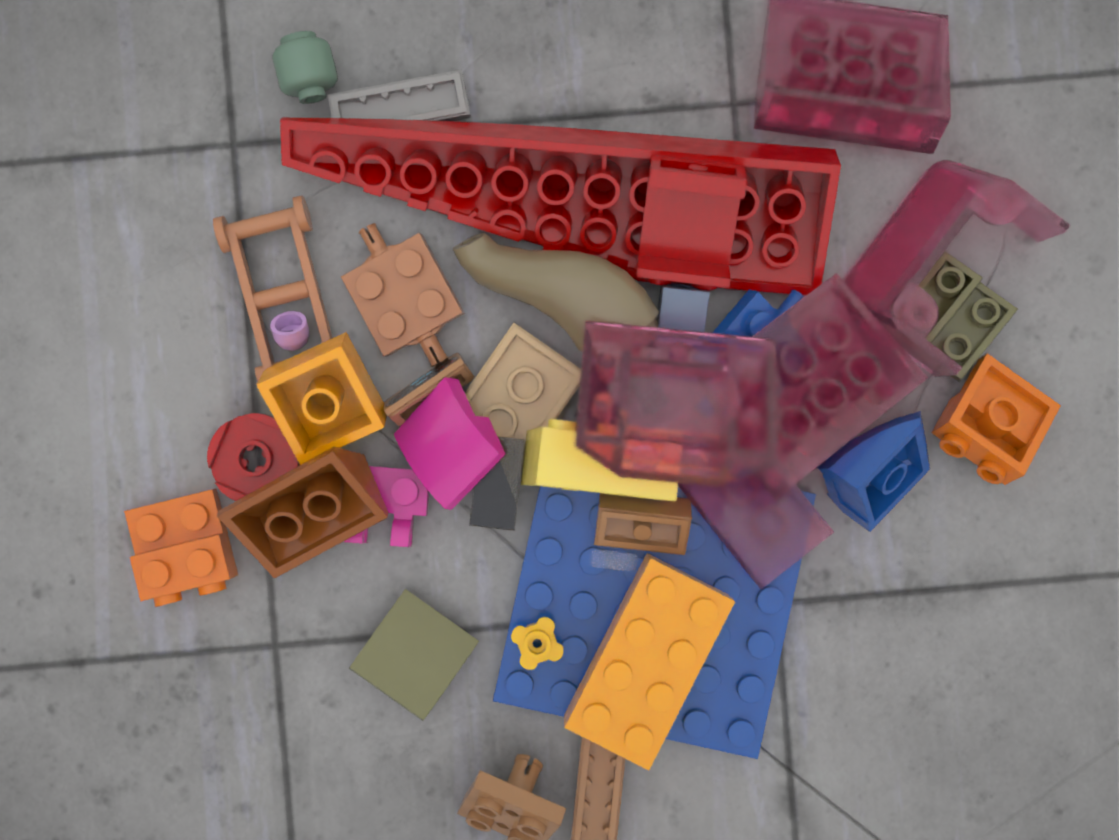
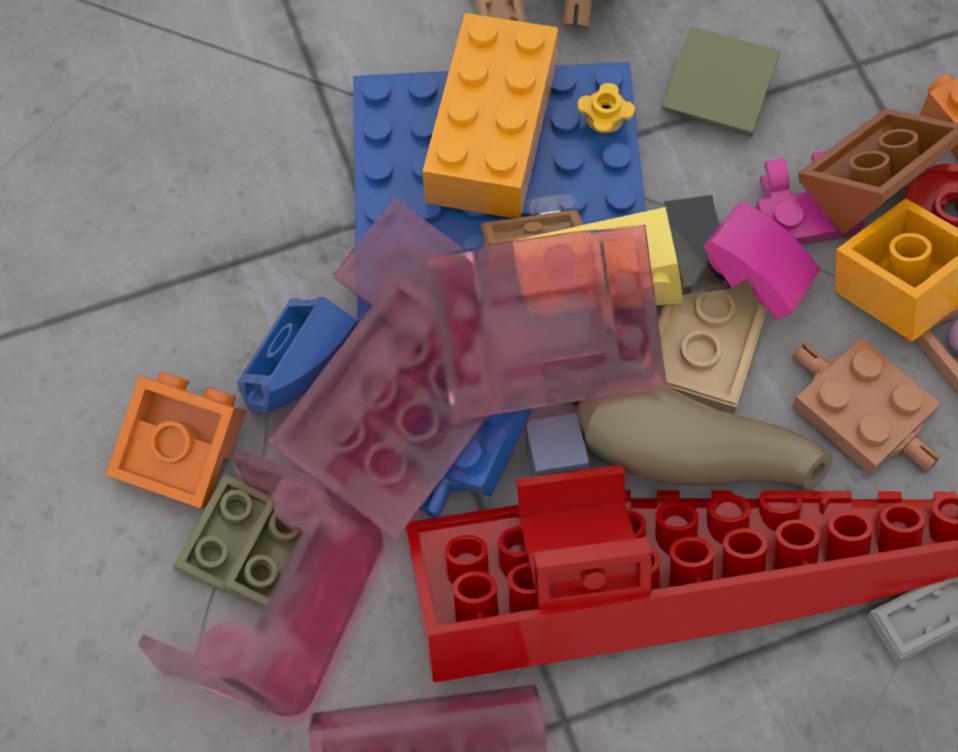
camera: 165 degrees right, 25 degrees down
(407, 400) = (808, 317): medium nougat slope -> none

